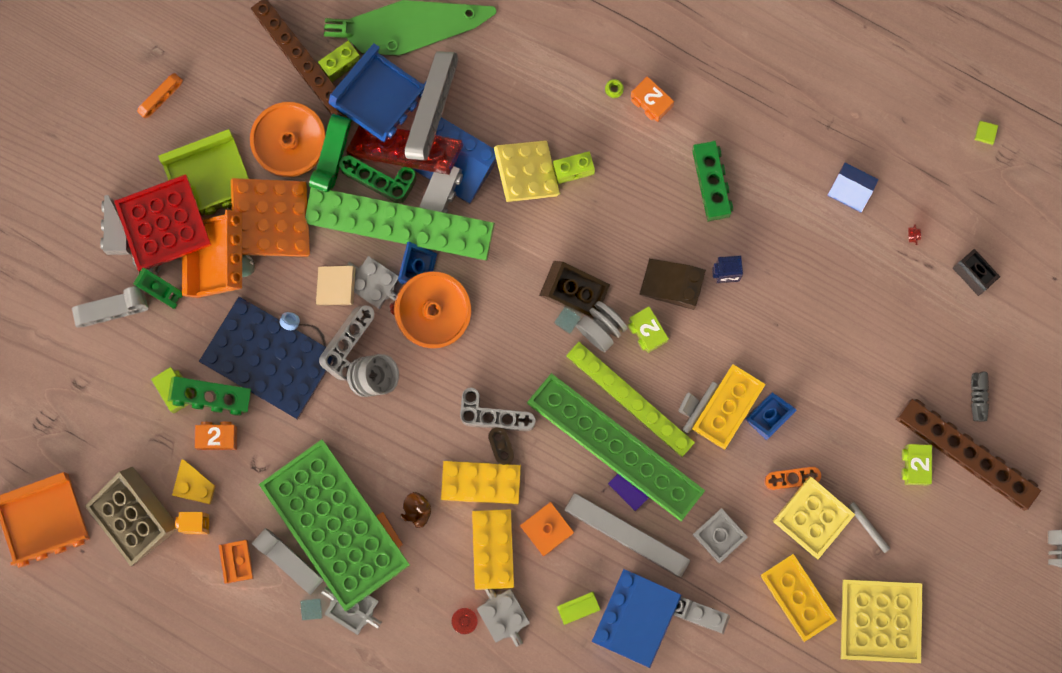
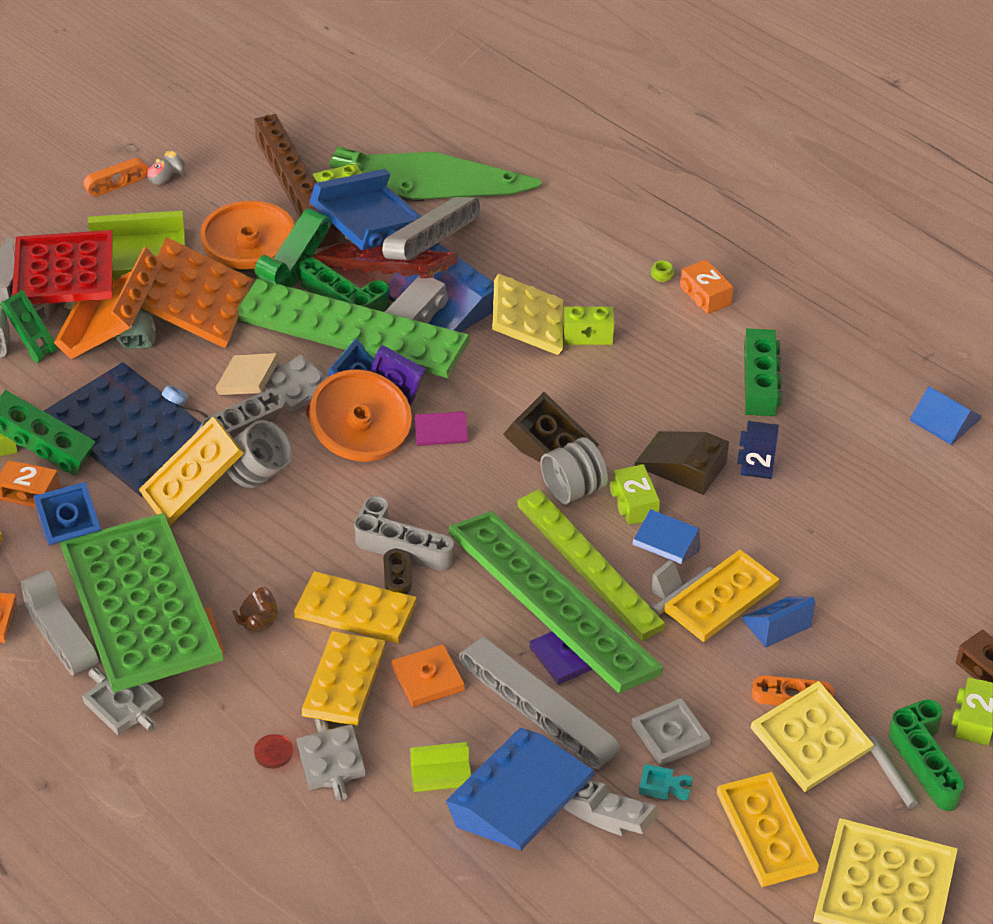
camera: 10 degrees right, 35 degrees down
(194, 79) = (163, 169): none -> light grey animal
(256, 463) = (66, 513): none -> blue slope
(311, 609) = (66, 693): clear light blue tile -> none
(331, 404) = (191, 471): none -> yellow plate
(448, 267) = (399, 370): none -> dark purple plate
(492, 301) = (441, 428): none -> magenta slope
(567, 320) = (529, 469): clear light blue tile -> none
(681, 374) = (668, 537): none -> blue slope
(722, 579) = (660, 782): none -> teal plate
(893, 510) = (912, 737): none -> green beam

